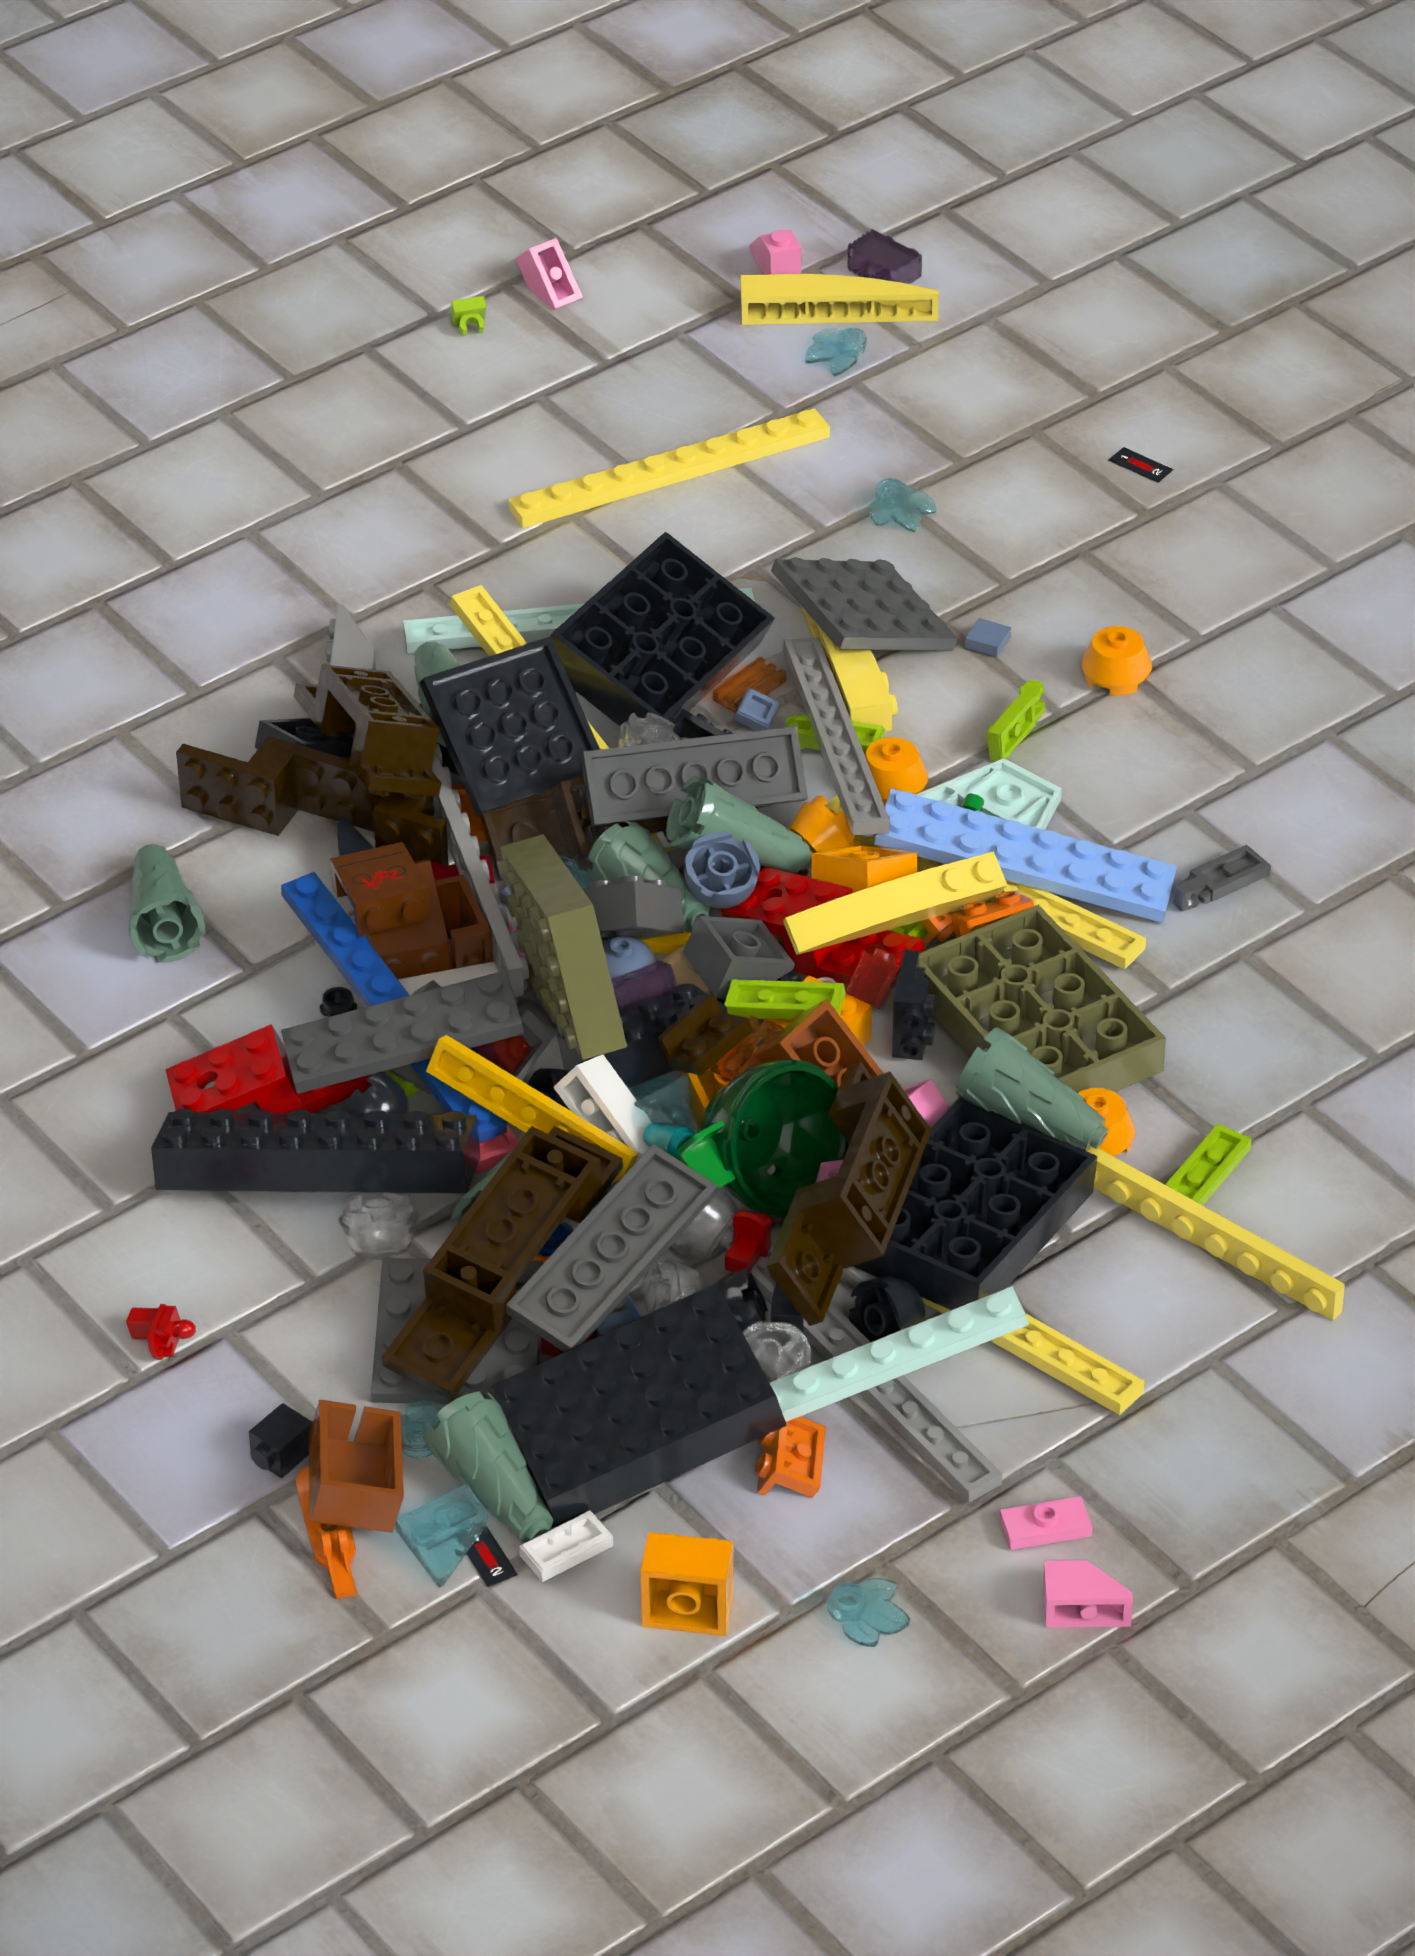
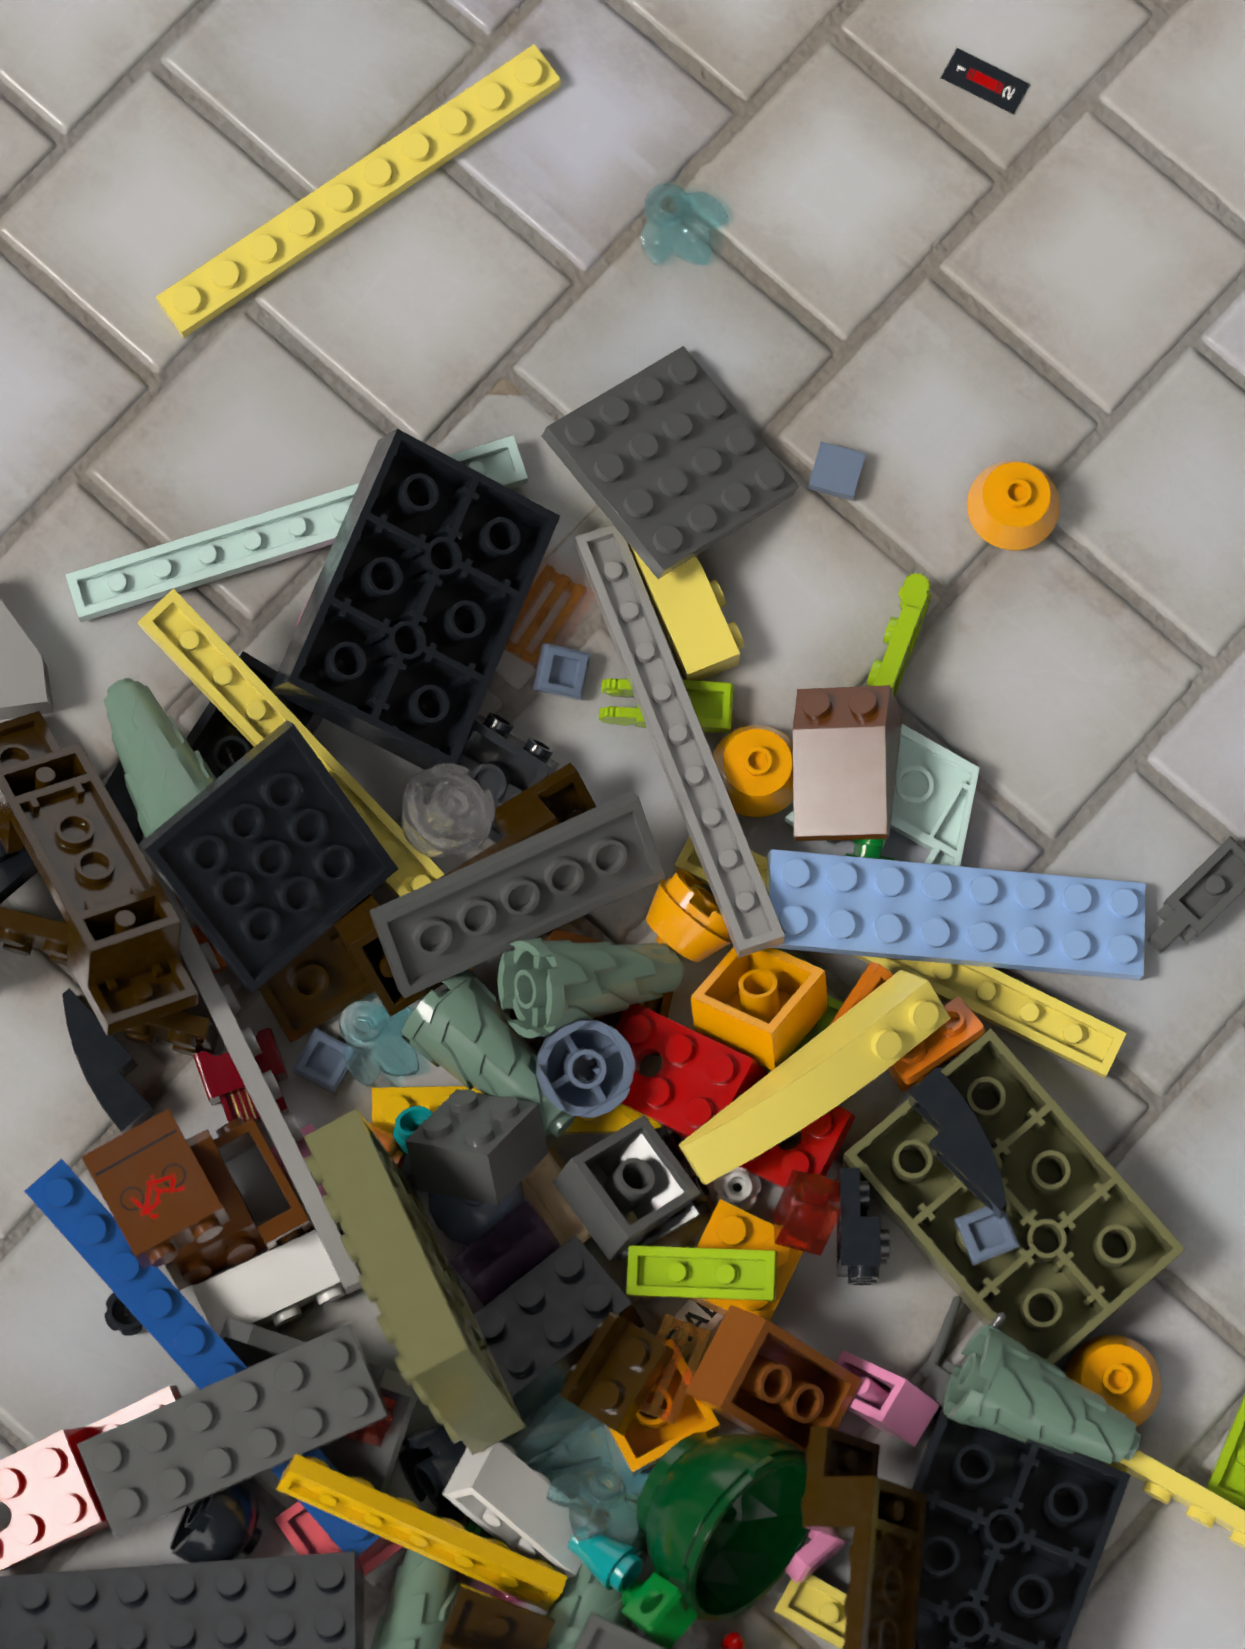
camera: 10 degrees left, 35 degrees up
(960, 757) = (845, 762): none -> slope
(998, 943) = (960, 1139): none -> black slope
(1011, 1008) = (986, 1235): none -> sand blue tile

